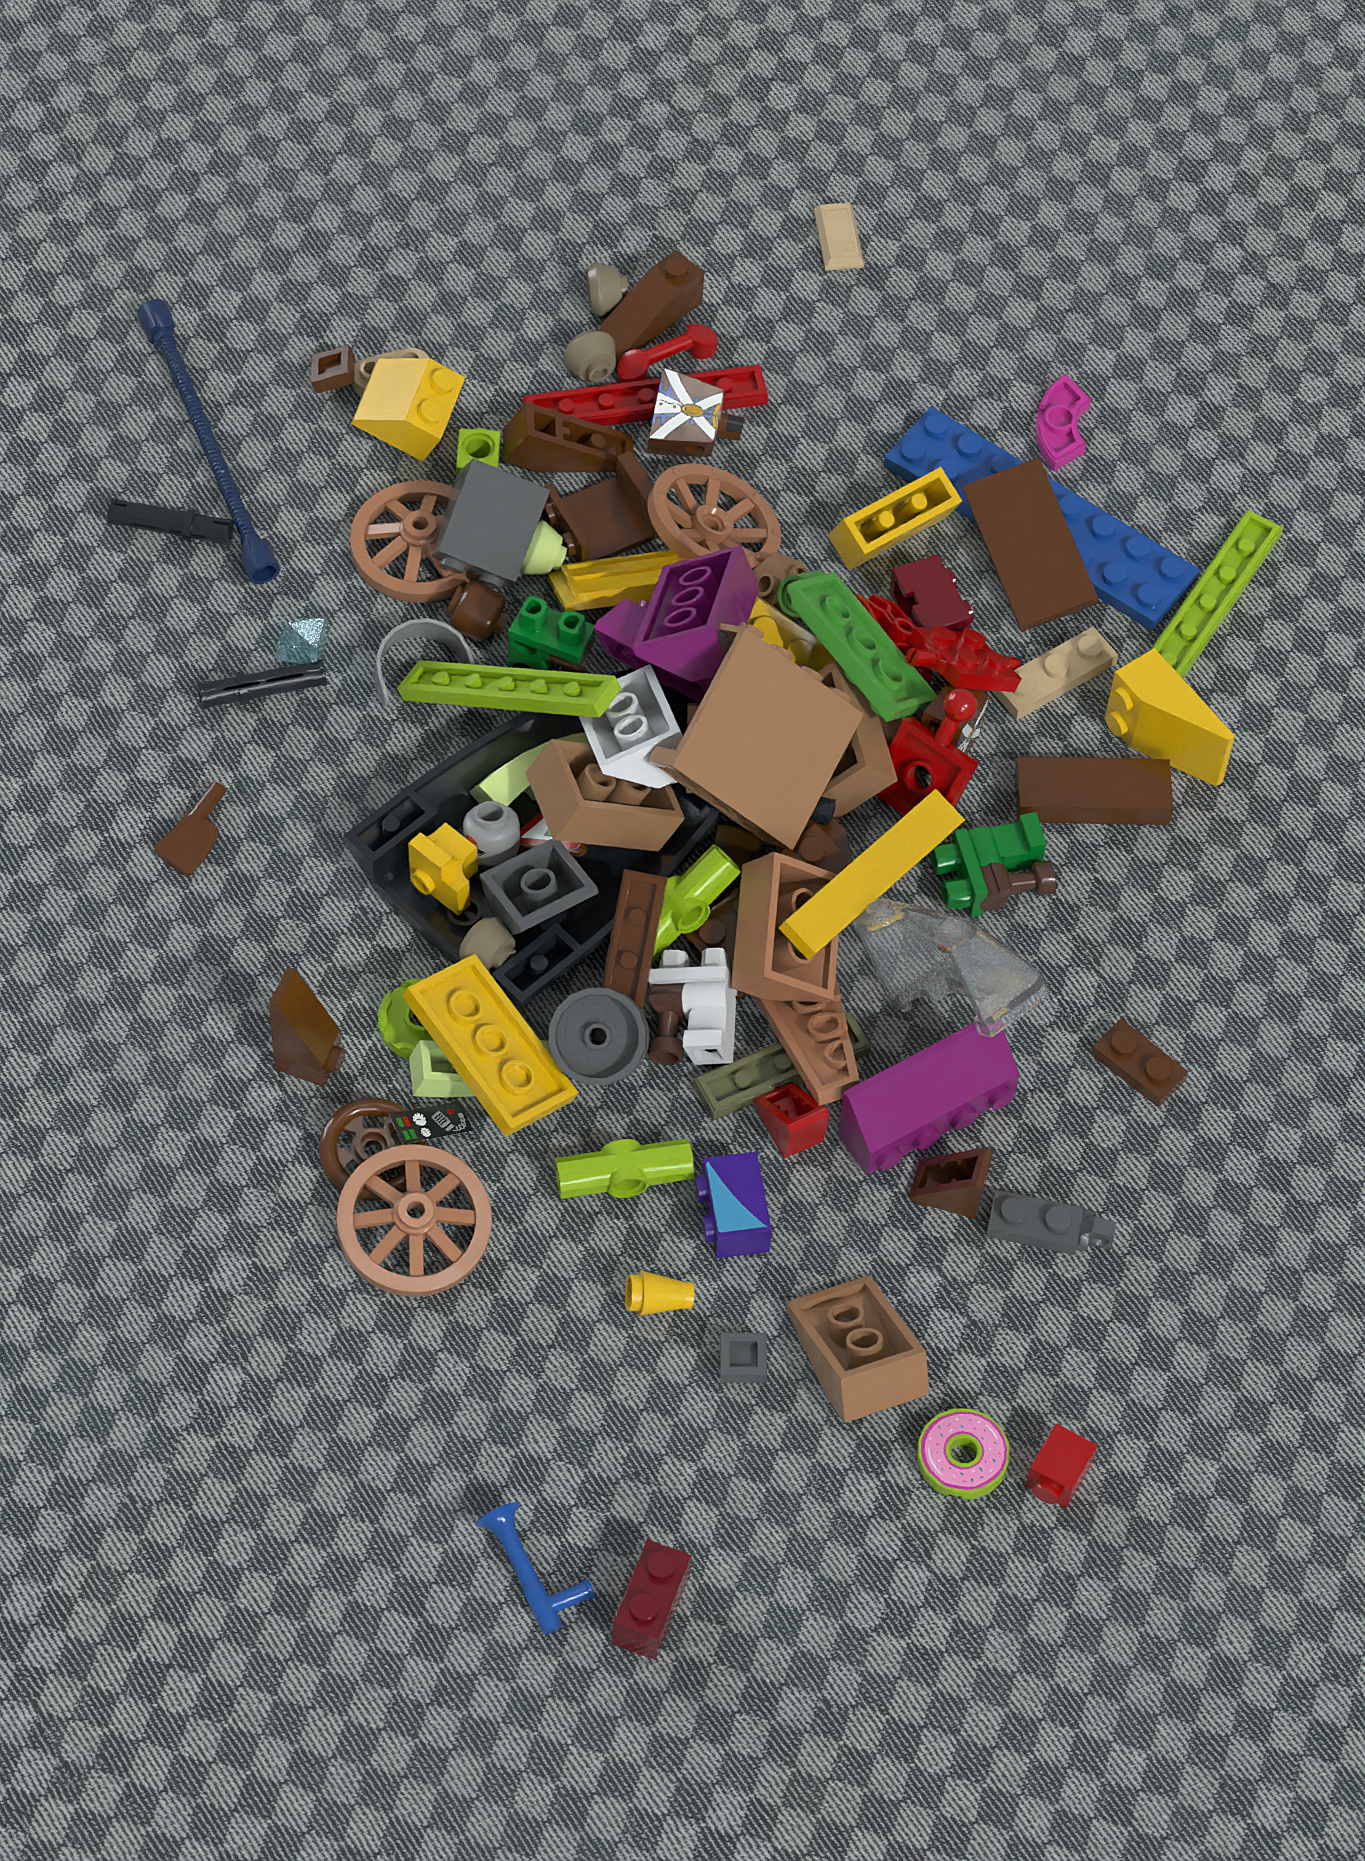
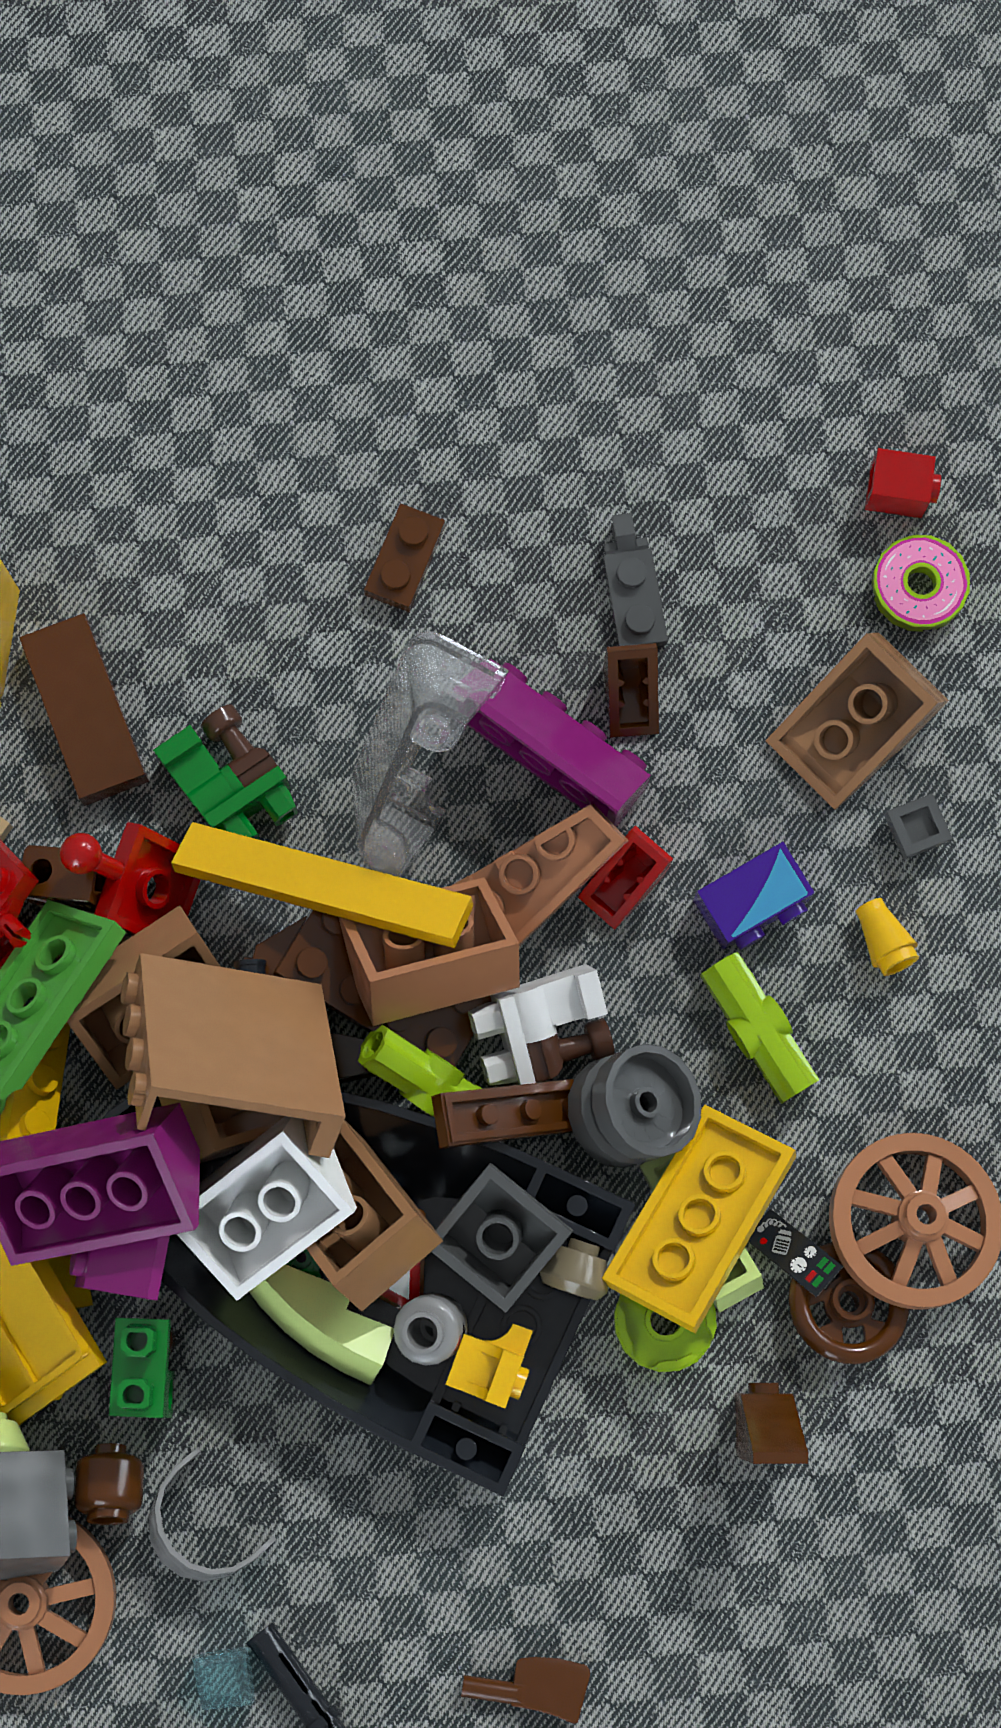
camera: 110 degrees left, 20 degrees up
(510, 688) = (238, 1384): lime plate -> none
(746, 1078) = (582, 934): olive tile -> none

